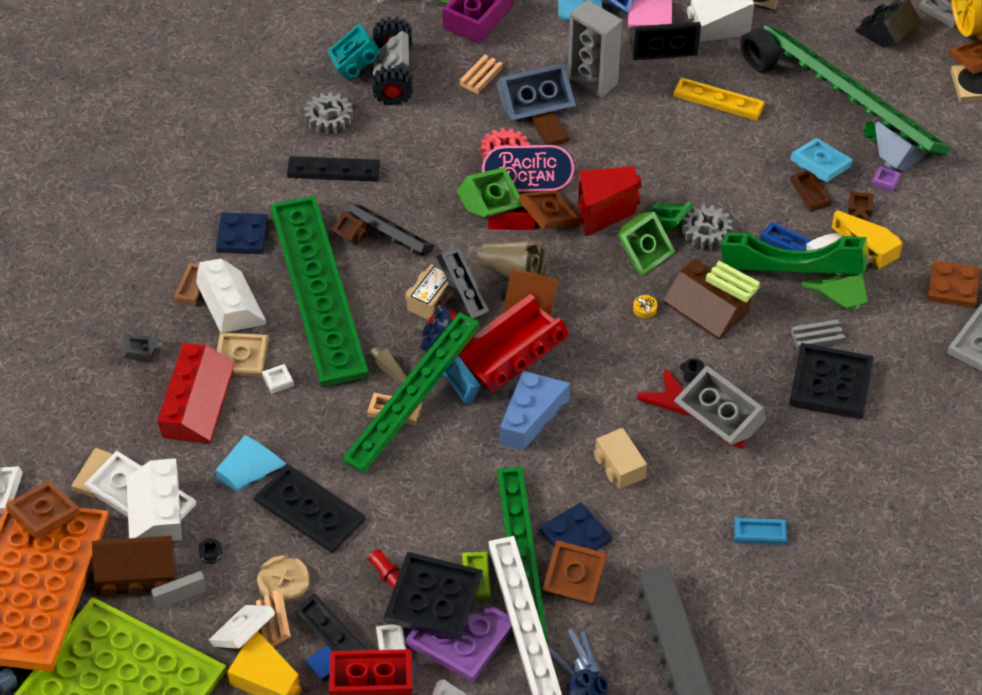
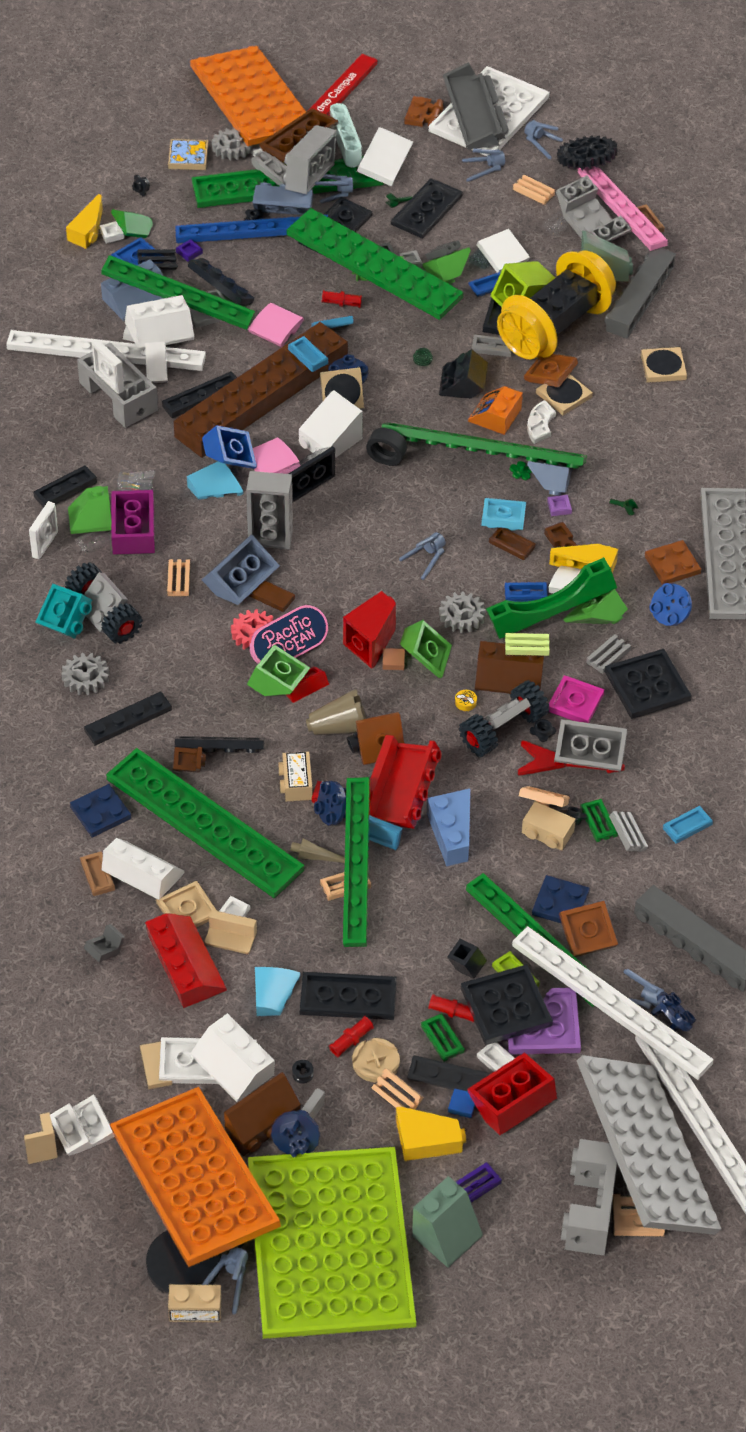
camera: 35 degrees left, 0 degrees up
(43, 509) = (151, 1114): dark orange plate -> none
(146, 599) = (292, 1123): none -> dark blue plate
(242, 626) = (383, 1110): white plate -> none
(256, 395) = (231, 932): none -> tan panel
(277, 545) = (351, 1036): none -> red pin
(356, 613) = (450, 1052): none -> green tile
(436, 534) = (467, 958): none -> black brick
(462, 283) = (321, 755): black plate -> none
(549, 209) = (332, 661): dark orange plate -> none
(608, 237) = (393, 659): none -> nougat tile
(636, 428) = (544, 797): none -> light nougat plate
(654, 462) = (576, 813): none -> black plate
(669, 214) = (430, 612): green slope -> none
(672, 496) = (604, 834): none -> green tile
(695, 334) = (526, 702): none -> black plate
(702, 511) = (628, 831): none -> light grey tile
(719, 99) = (382, 503): yellow tile -> none
(732, 154) = (432, 544): none -> sand blue plant
(747, 359) = (575, 700): none -> dark pink plate
(898, 68) = (498, 409): none -> orange slope
(914, 319) = (664, 598): none -> blue plate
(930, 96) = (539, 420): none -> white tile
(951, 210) = (629, 505): none -> dark green hand

